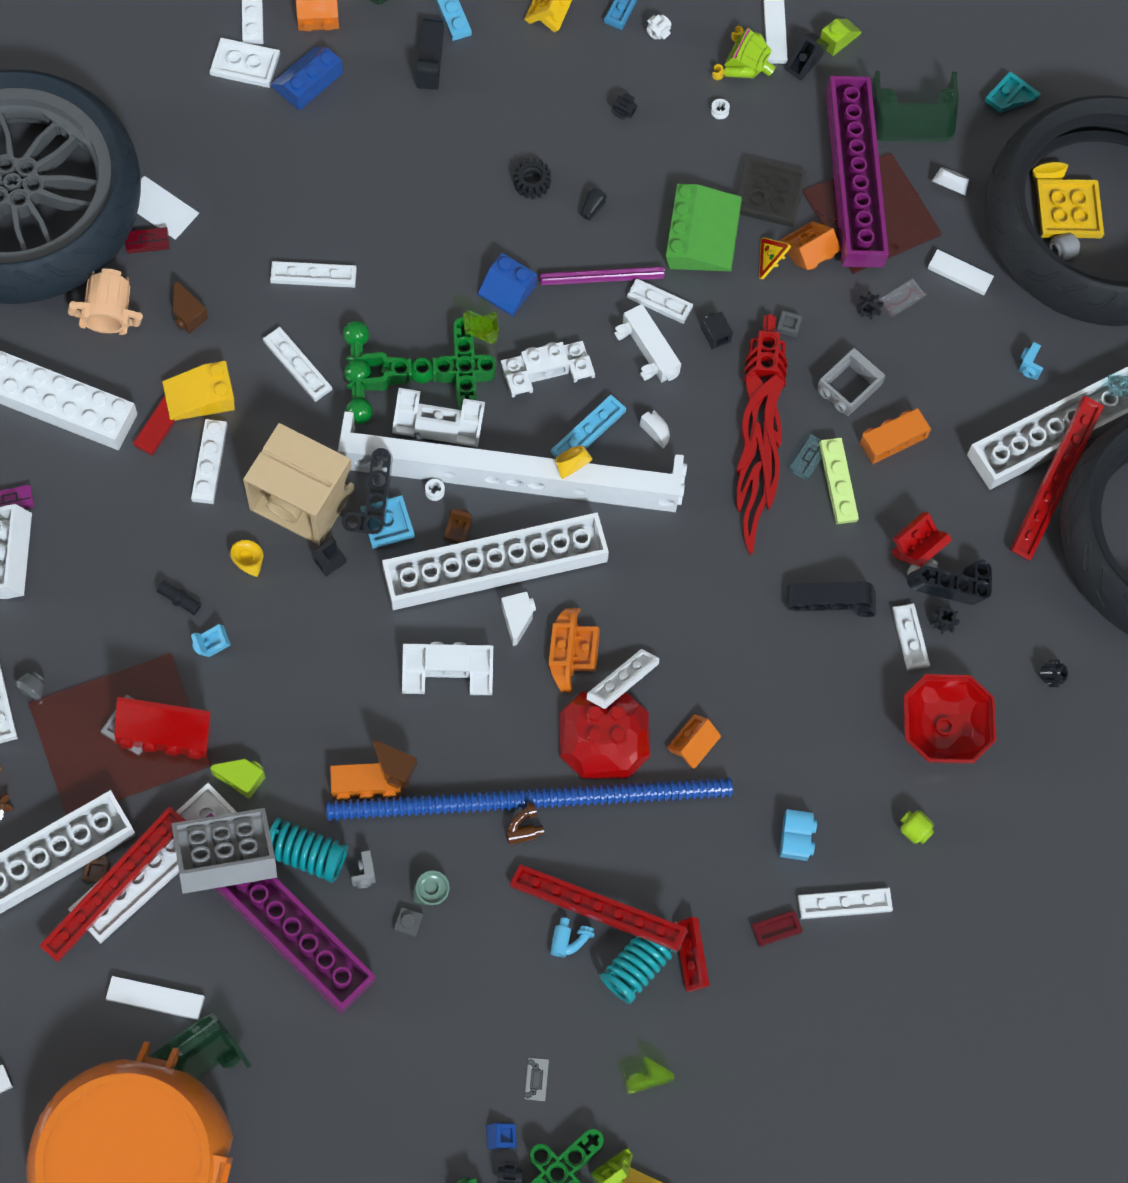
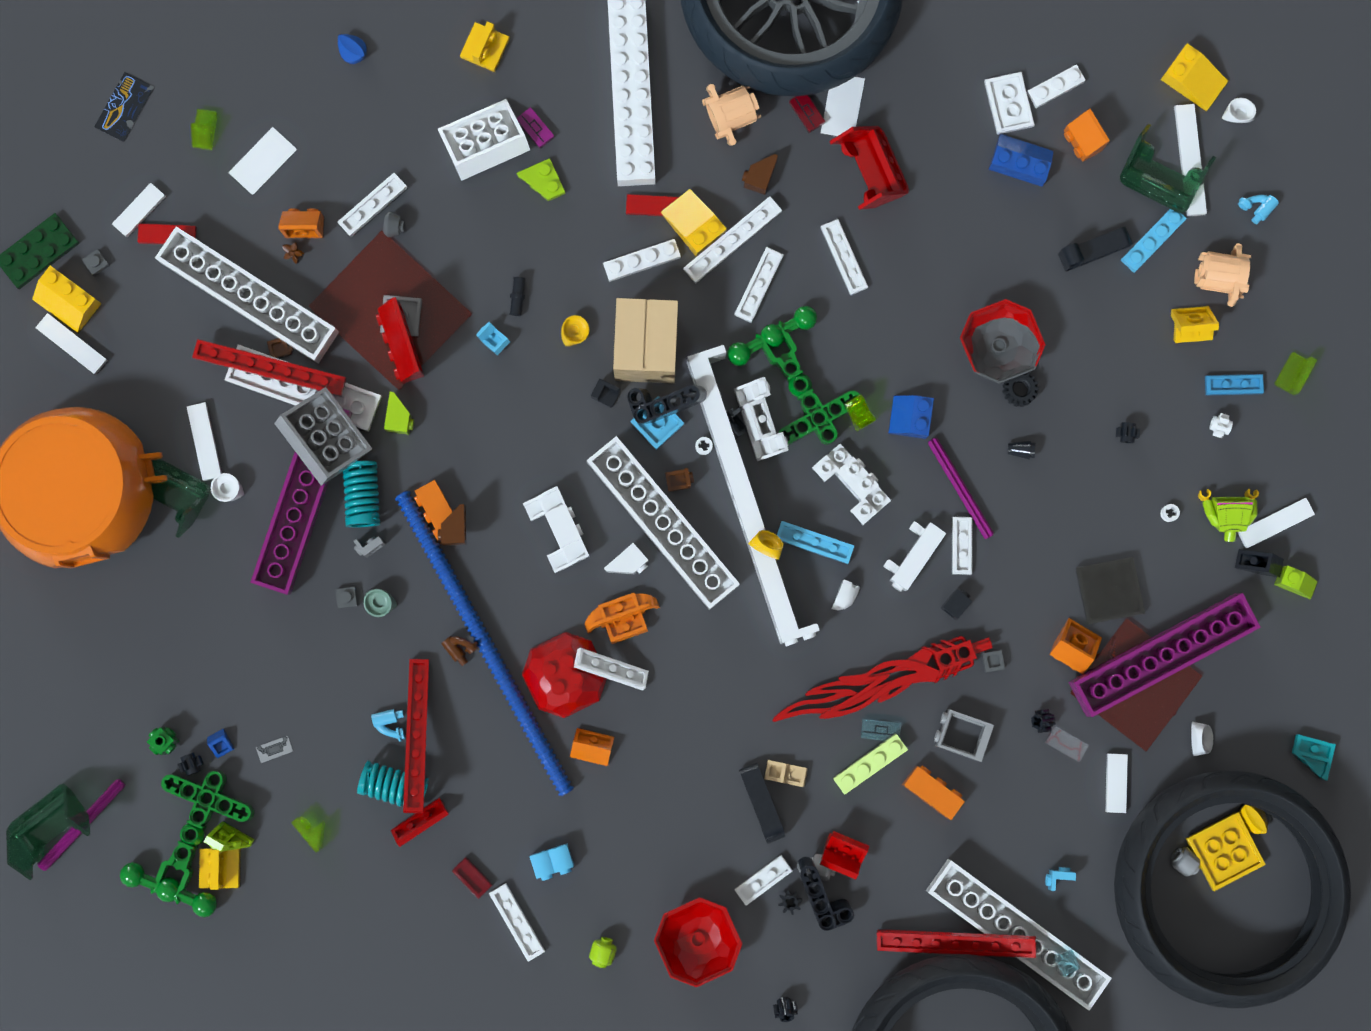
camera: 65 degrees right, 15 degrees up
(70, 516) = (543, 179): none -> lime wing
(219, 995) = (226, 488): none -> white piece
(237, 203) = (876, 164): none -> red windscreen
(238, 366) = (732, 239): none -> white plate
(479, 165) = (1002, 341): none -> dark grey rock
(703, 229) = (1043, 551): bright green slope -> none
(770, 254) = (1049, 618): piece -> none
(811, 564) = (786, 773): none -> tan slope
(915, 120) = (1240, 683): clear green windscreen -> none

